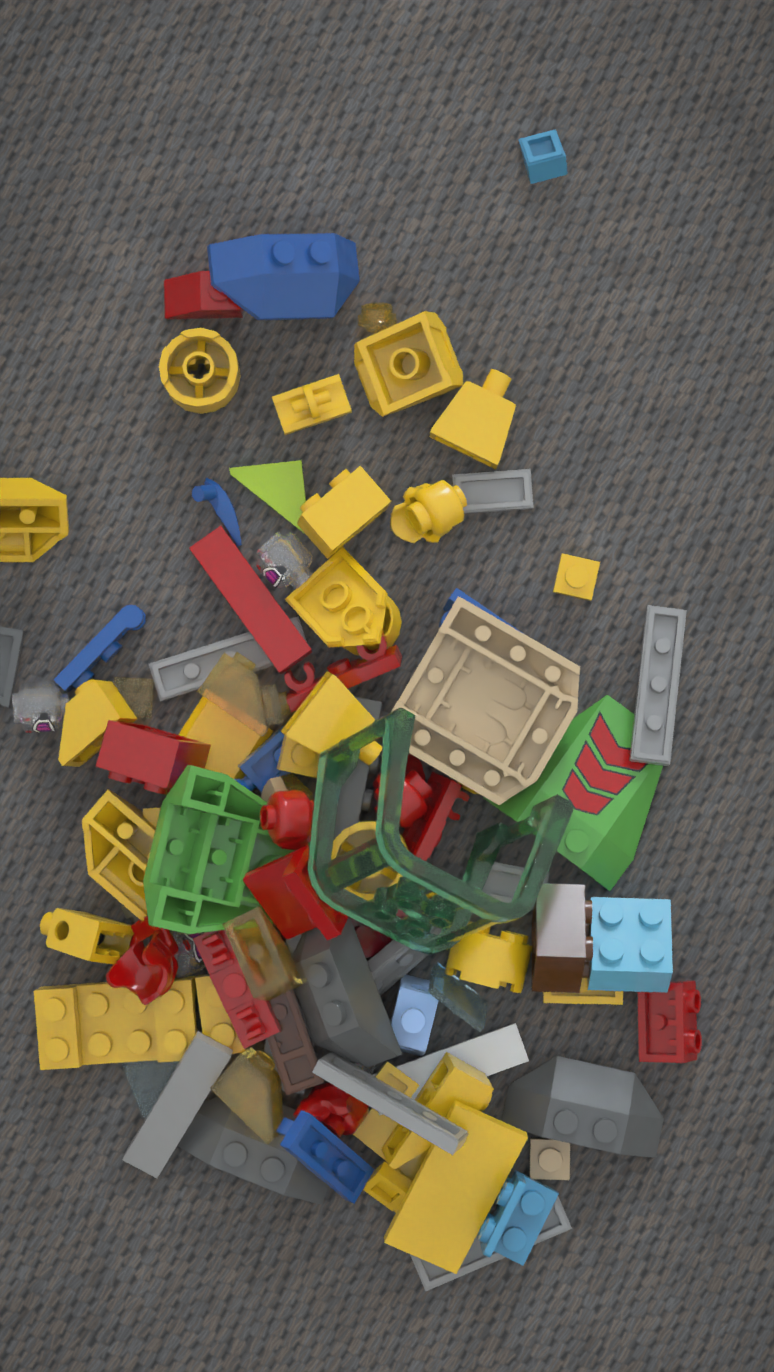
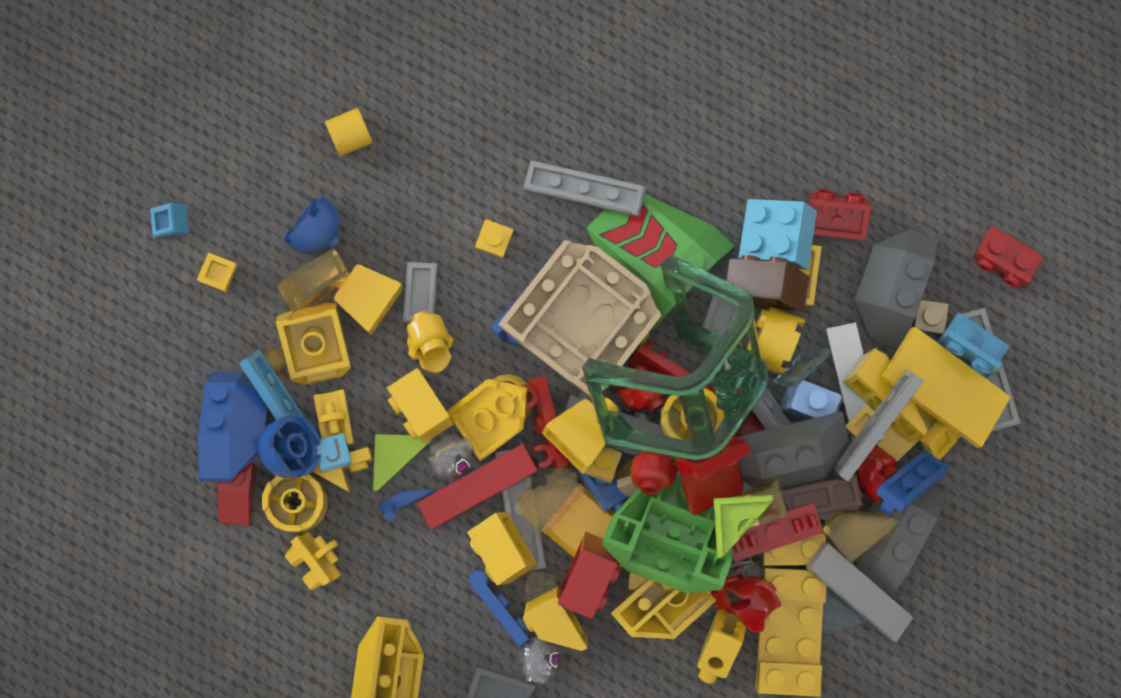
camera: 80 degrees left, 5 degrees down
(134, 410) = (318, 557): none -> yellow hips
(174, 641) = (501, 548): none -> yellow brick
(241, 930) = (735, 517): none -> lime tile
(248, 415) = (338, 476): none -> yellow slope
(263, 353) = (289, 447): none -> blue cylinder
(266, 409) = (333, 453): none -> medium azure tile
(318, 336) = (269, 386): none -> dark azure tile
(482, 227) = (217, 272): none -> yellow plate
(485, 351) = (313, 281): none -> clear yellow slope
(556, 344) = (315, 228): none -> blue cylinder
(642, 1251) = (1007, 257): none -> red bracket
(689, 368) = (348, 132): none -> yellow piece

